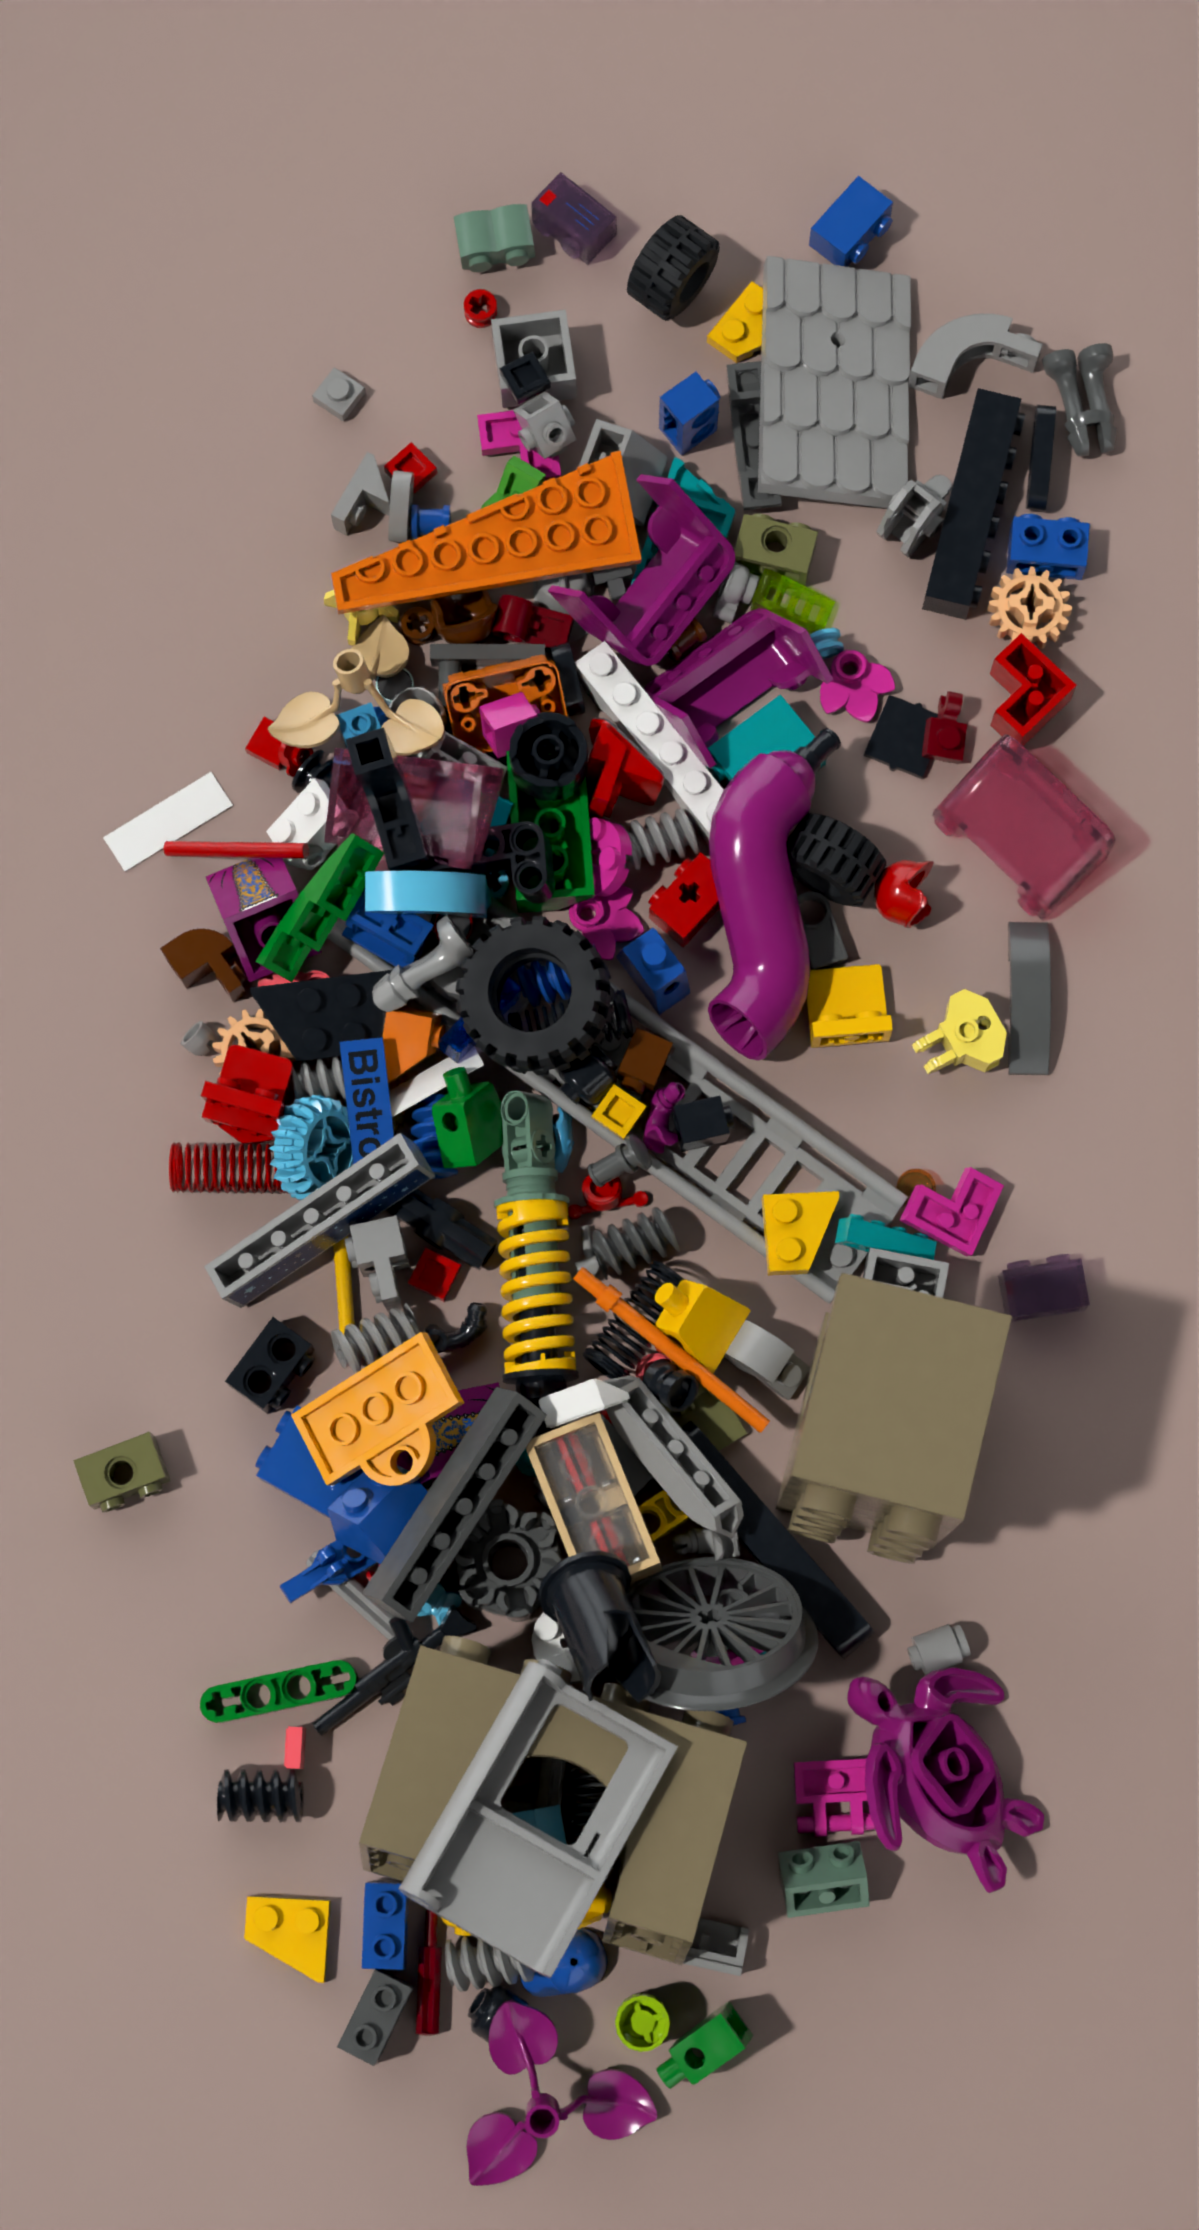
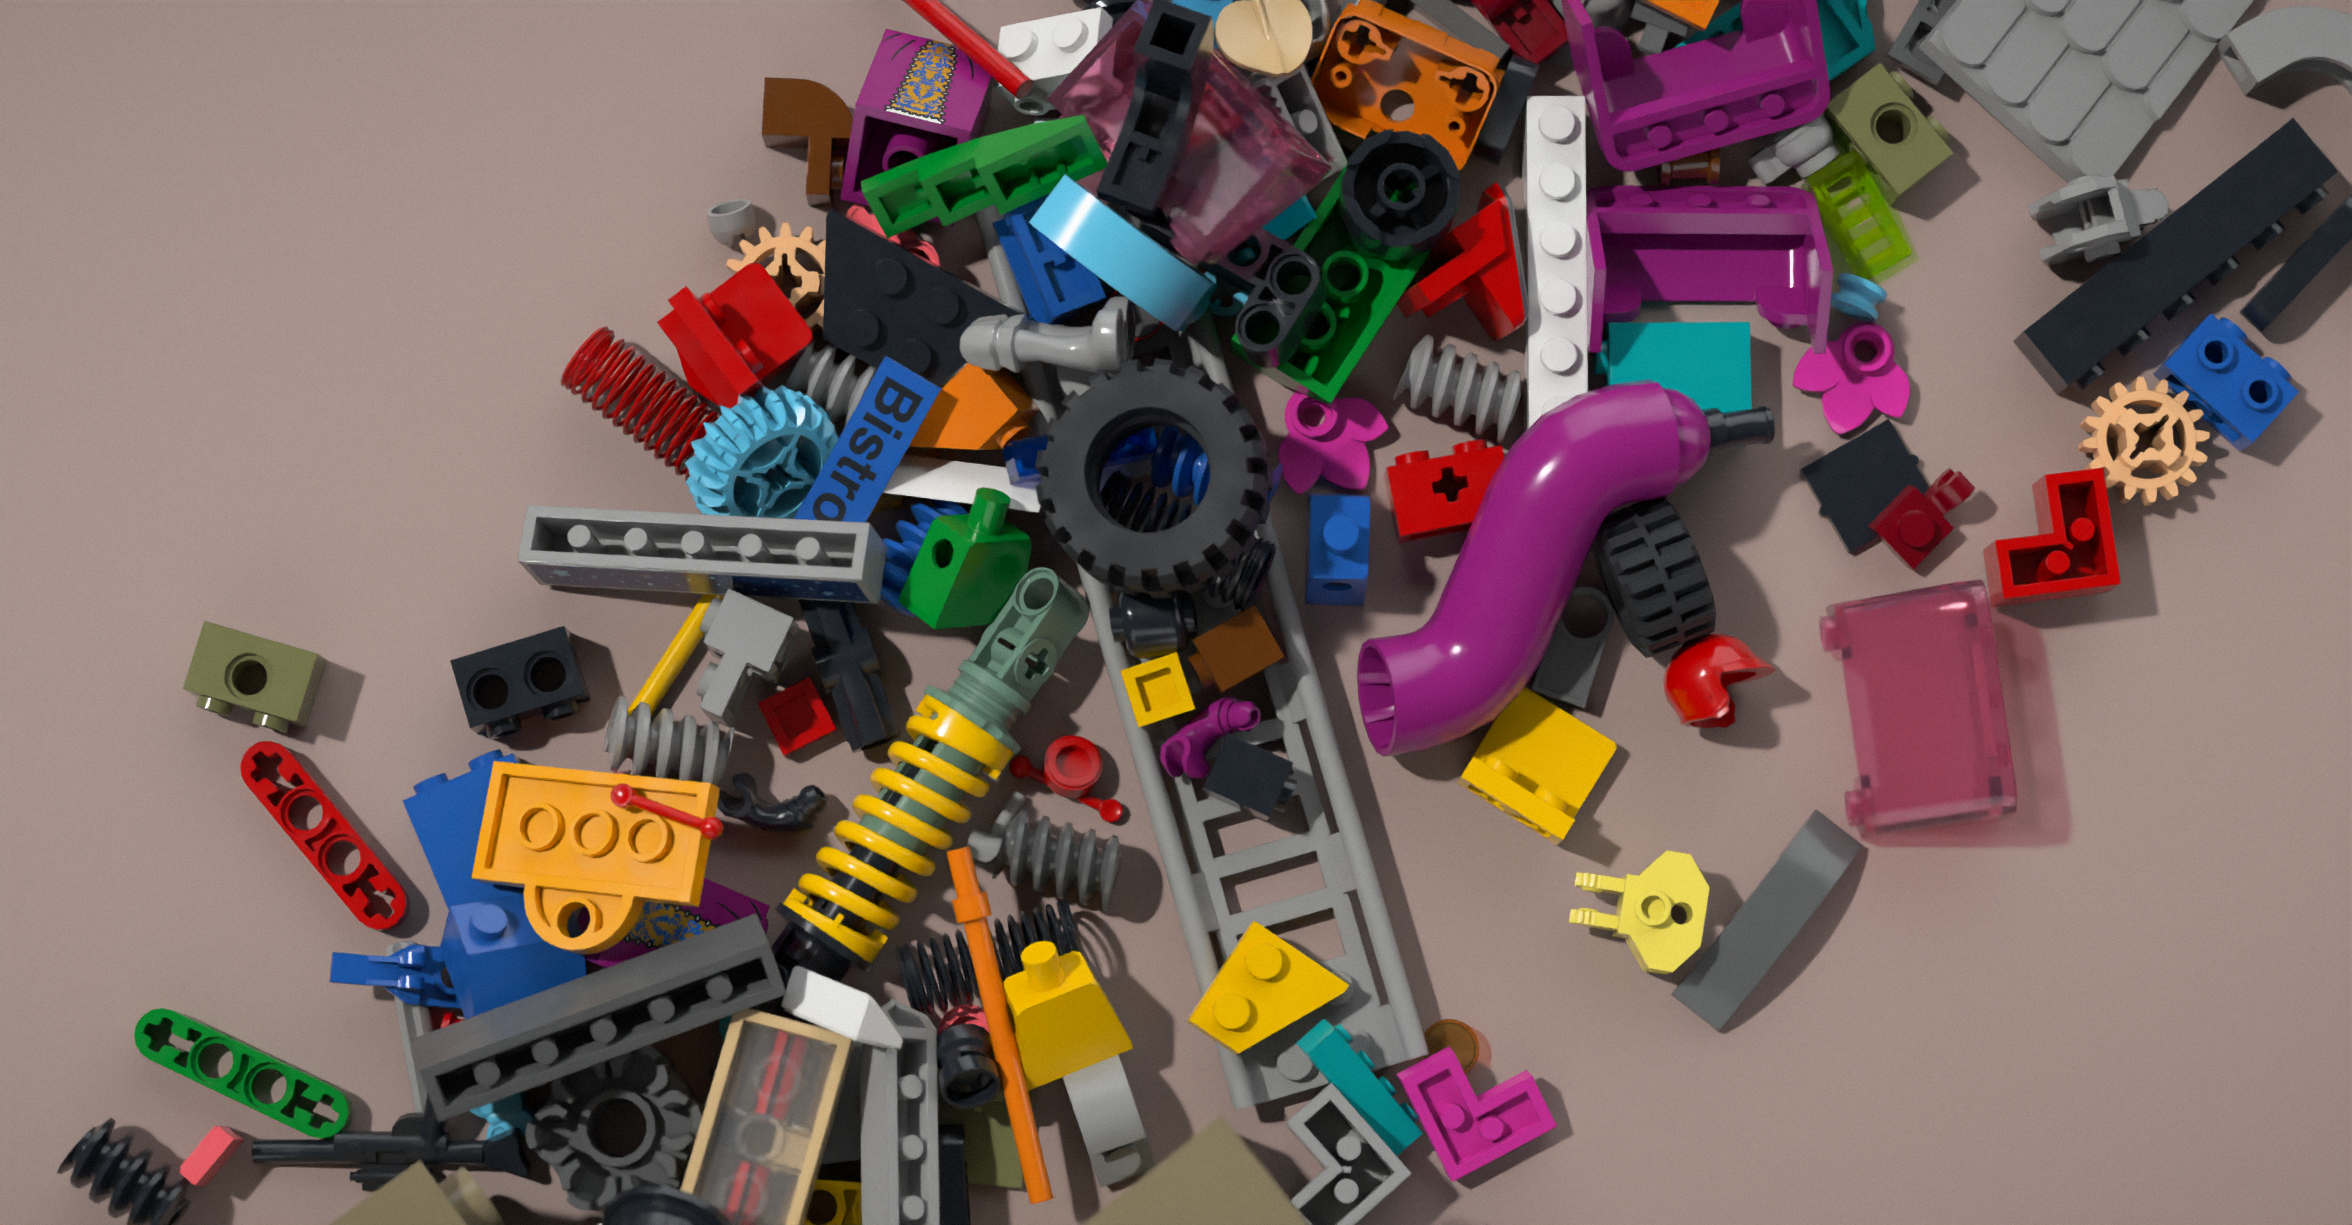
camera: 30 degrees right, 5 degrees up
(225, 1533) = (321, 839): none -> red beam
(379, 1375) = (626, 797): none -> red hinge
(501, 719) = (1388, 103): dark pink brick -> none
(564, 1140) = (1072, 671): dark azure piece -> none
(614, 846) = (1402, 361): dark pink plate -> none
(623, 1160) = (1123, 753): dark grey pin -> none

